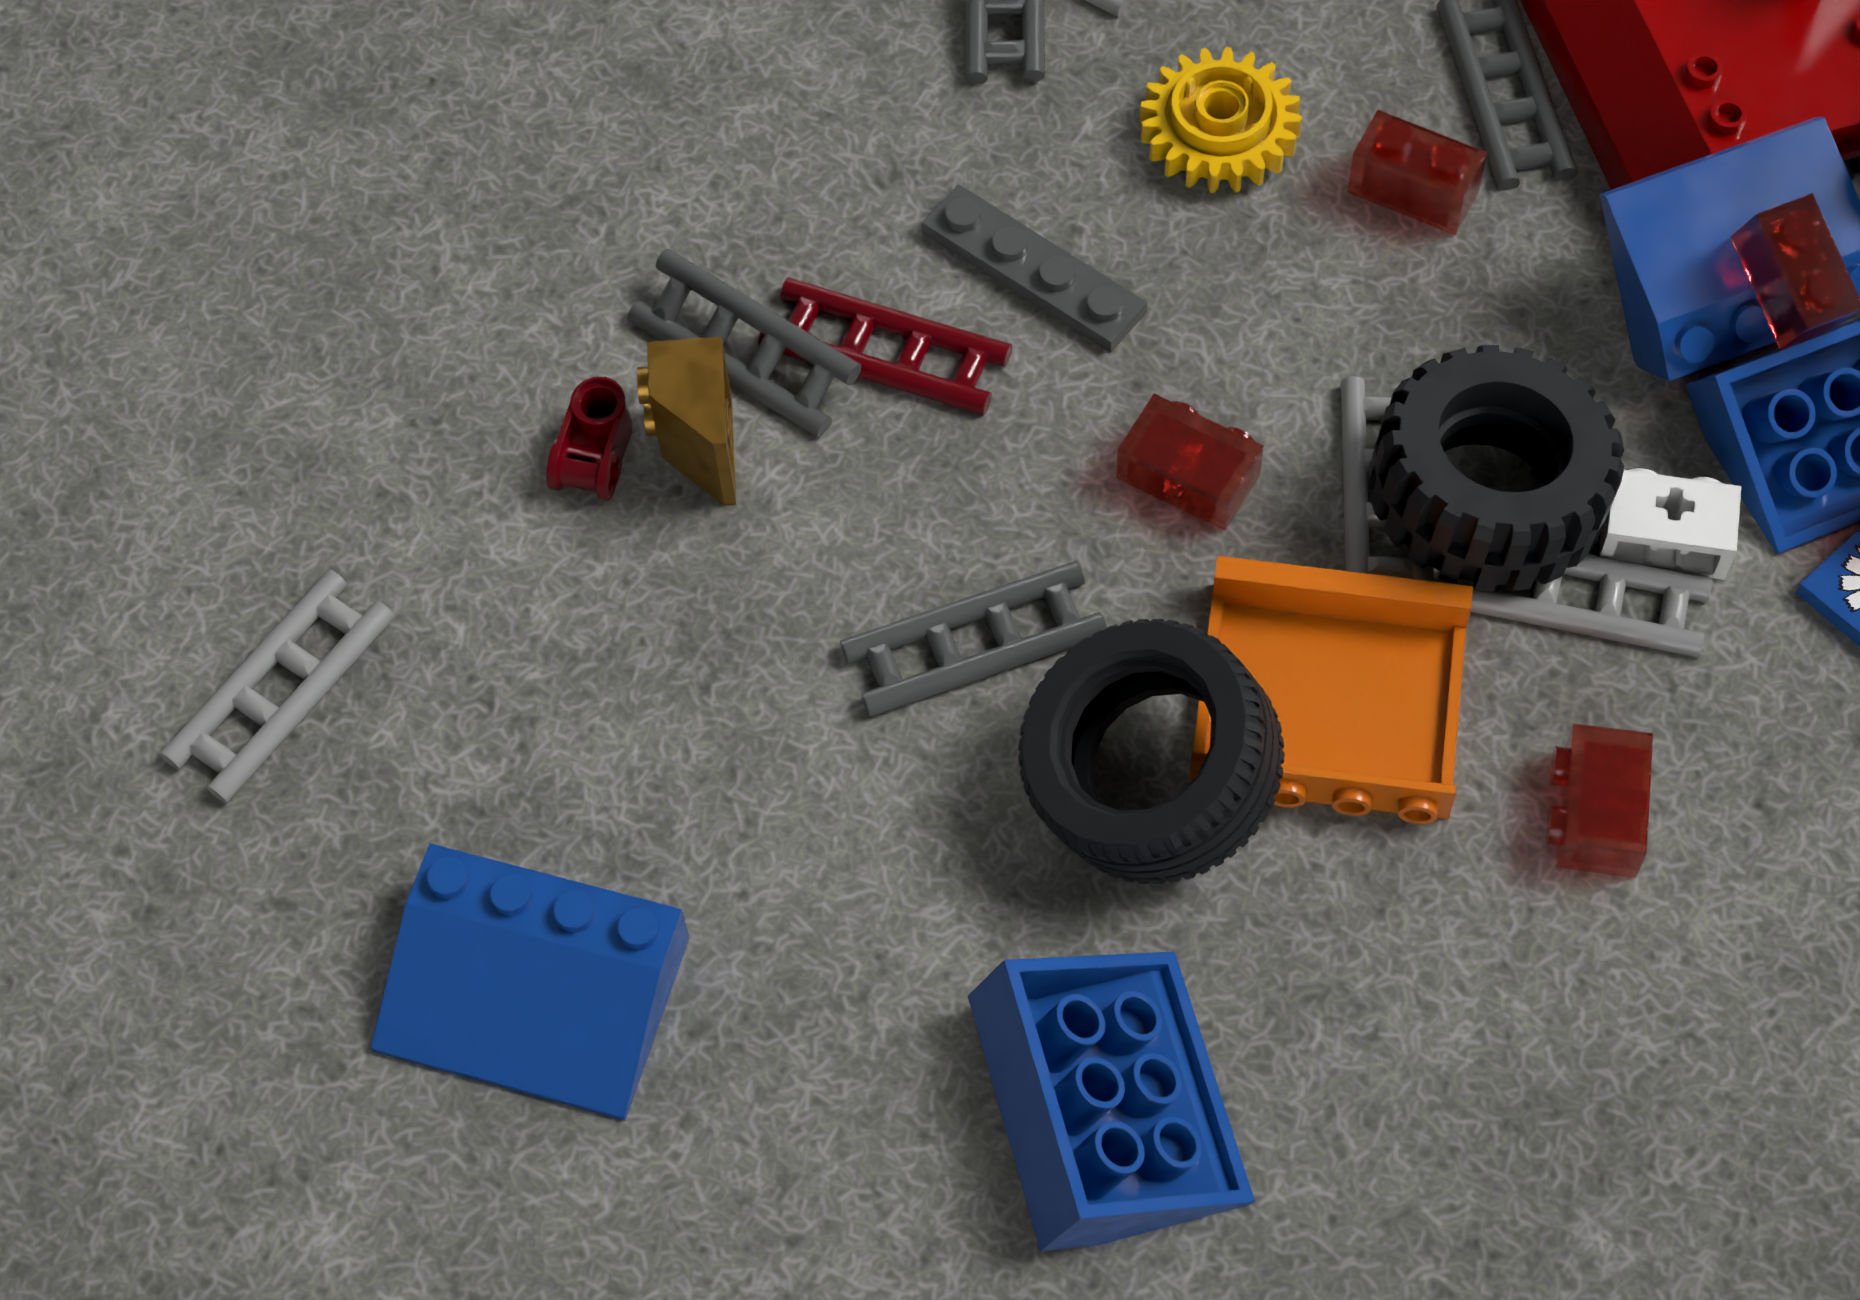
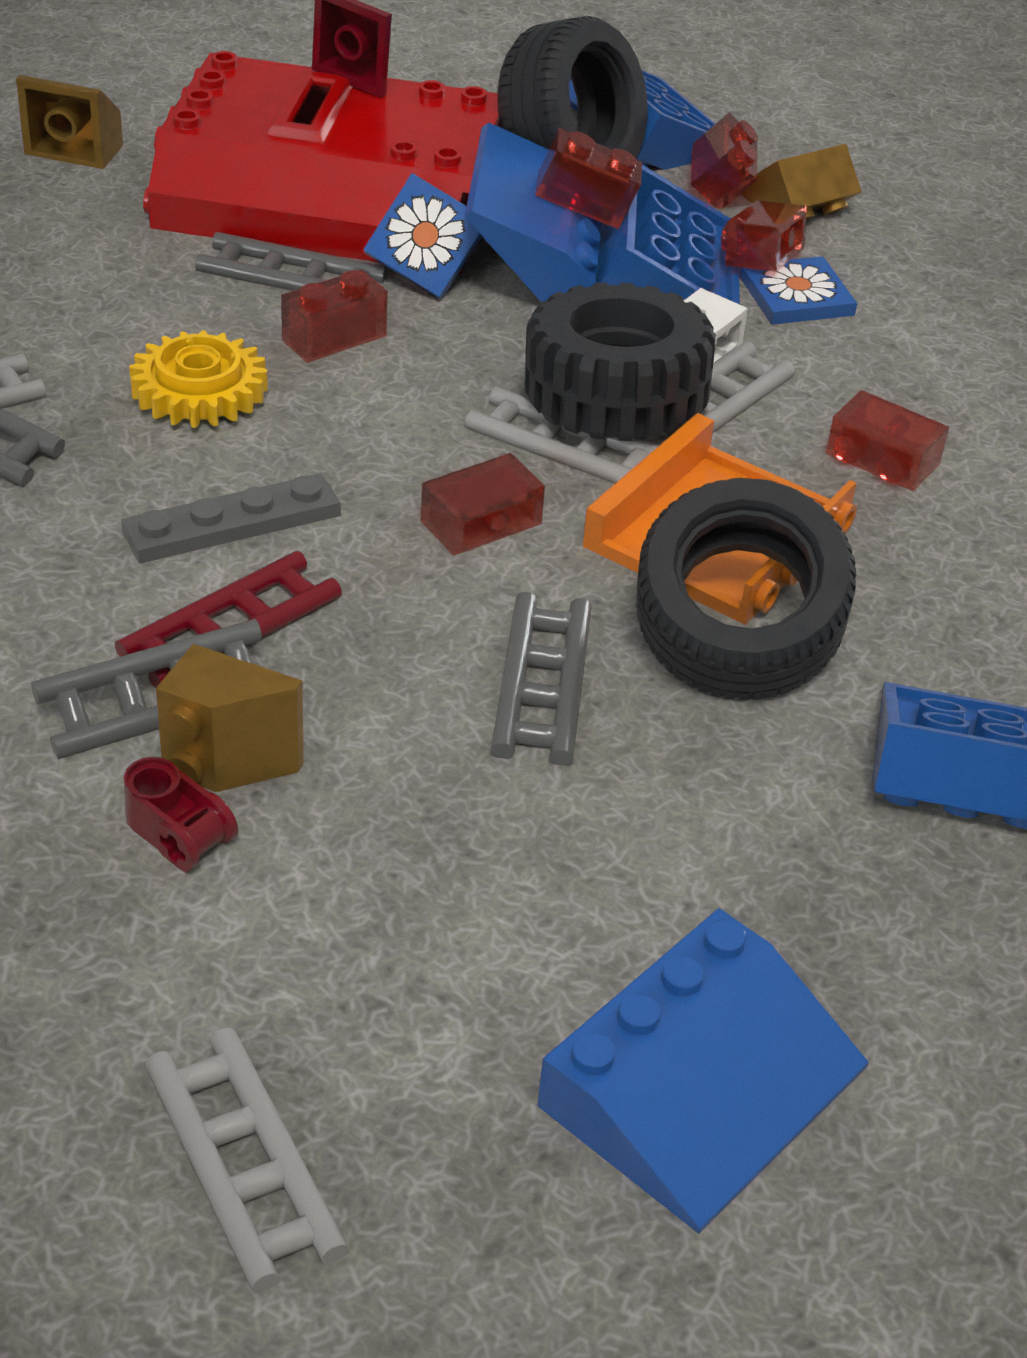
camera: 70 degrees left, 20 degrees down
(1603, 158) = (424, 237): none -> tile

